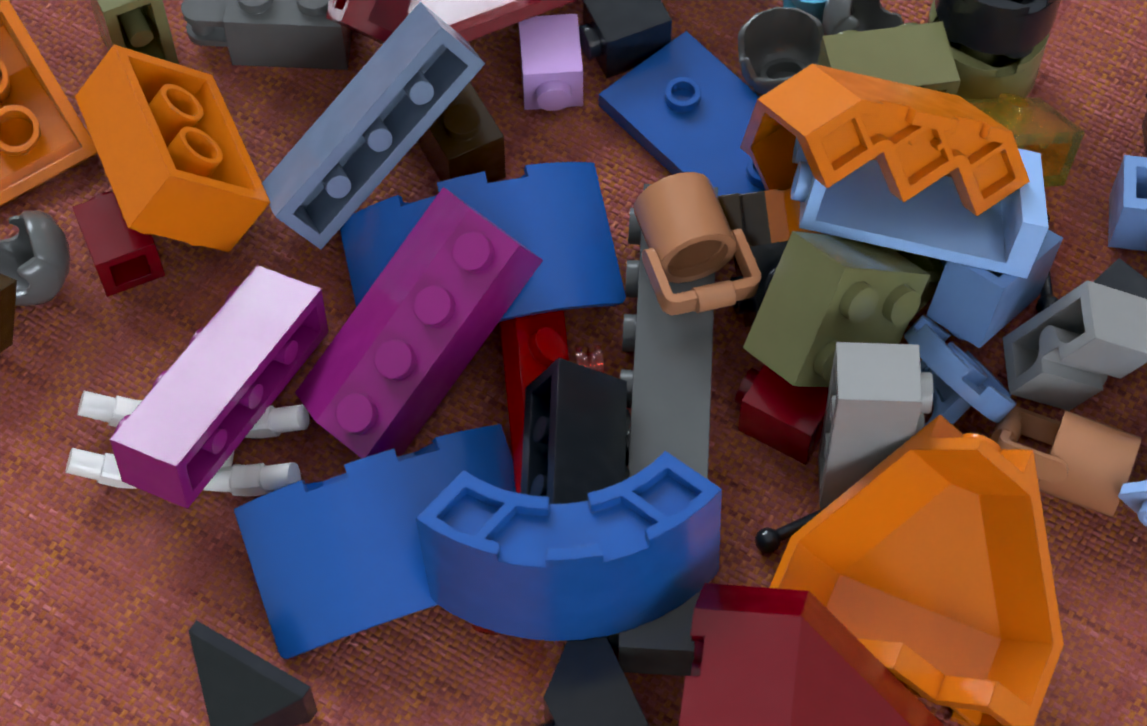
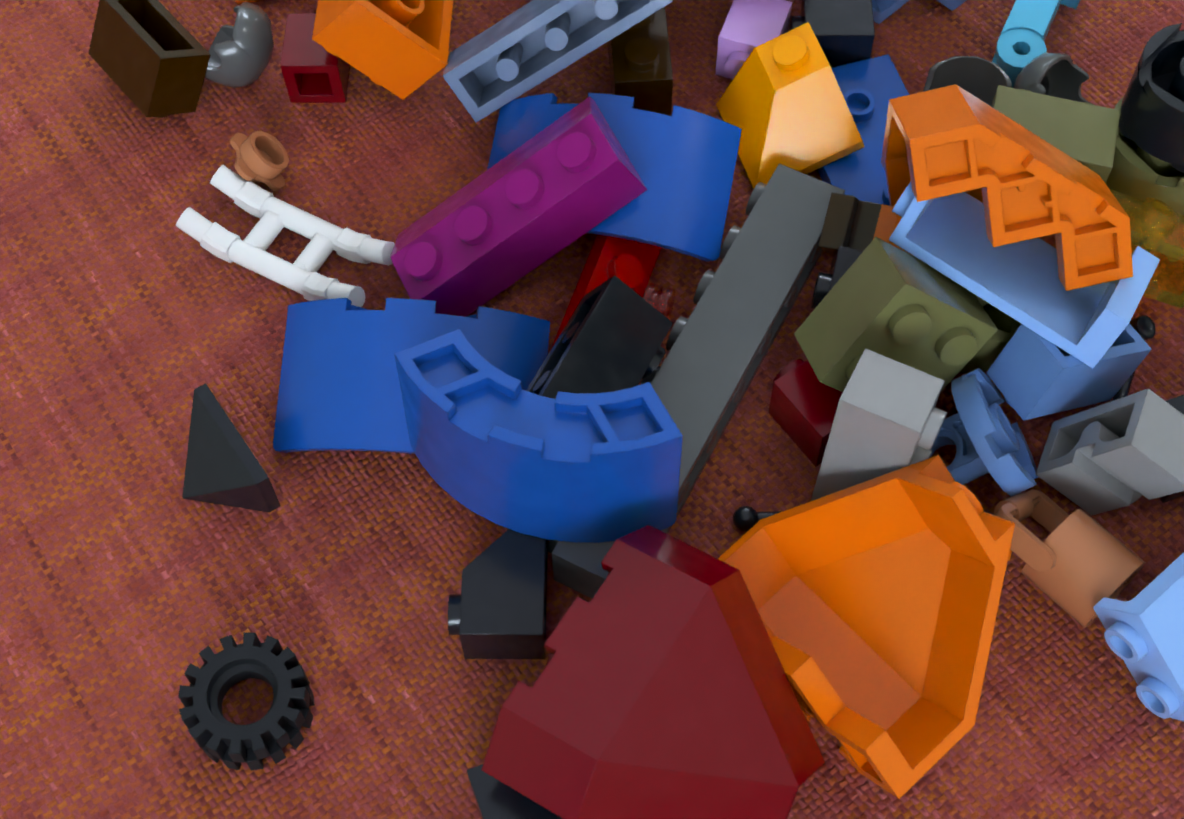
camera: 25 degrees right, 0 degrees up
(115, 369) = (260, 158): none -> nougat plate
(219, 386) = (329, 200): brick -> none
(624, 122) = (789, 108): none -> light orange slope
(689, 242) = (789, 224): nougat piece -> none

